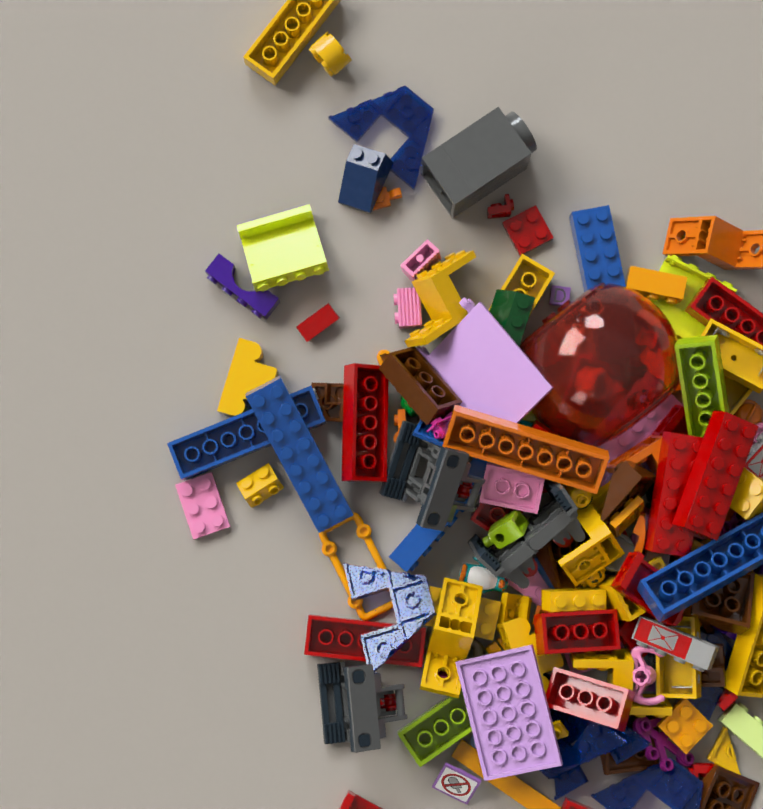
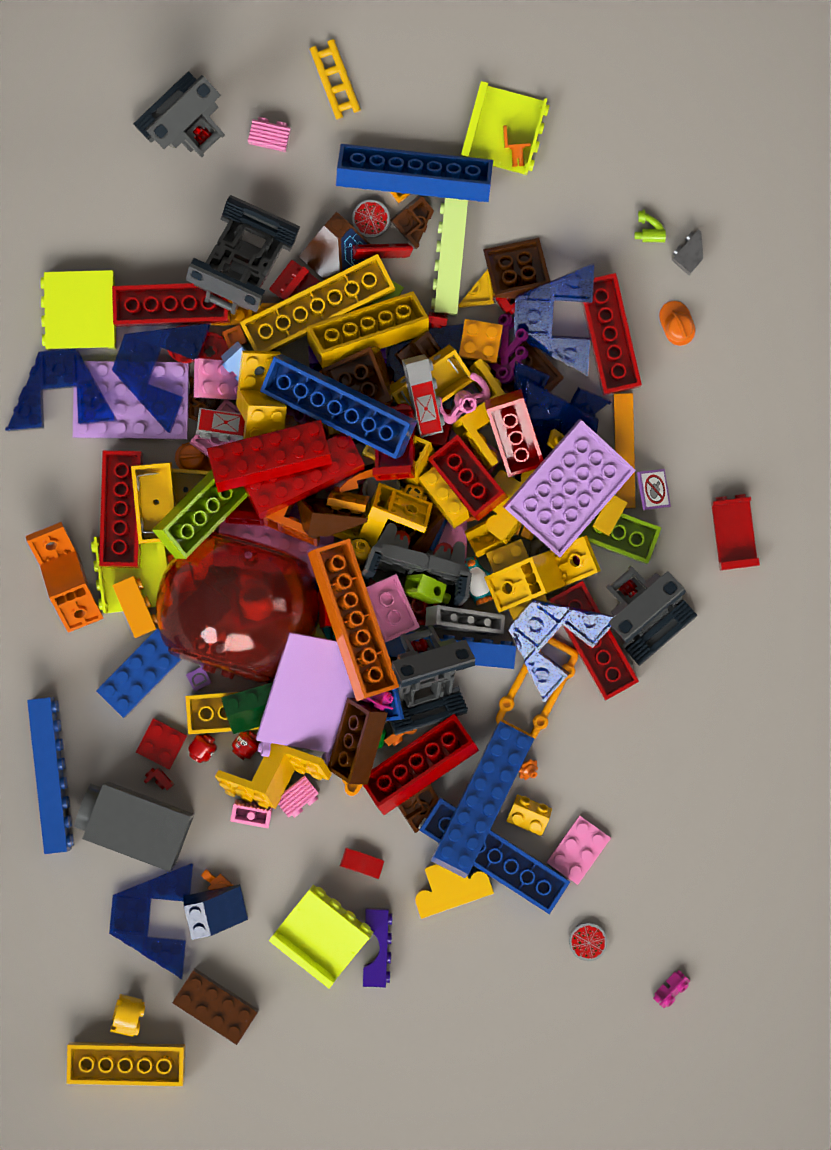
camera: 130 degrees left, 5 degrees up
(36, 508) = (677, 984): none -> dark pink hinge
(123, 460) = (588, 941): none -> tile
(287, 128) = (215, 1006): none -> reddish brown brick
(297, 510) = (528, 769): none -> orange plant
(457, 544) = (465, 620): none -> light grey brick
(461, 730) = (609, 515): none -> yellow slope
(480, 292) = (245, 745): none -> red head
(501, 259) = (202, 748): none -> red head
(566, 123) = (49, 775): none -> blue brick

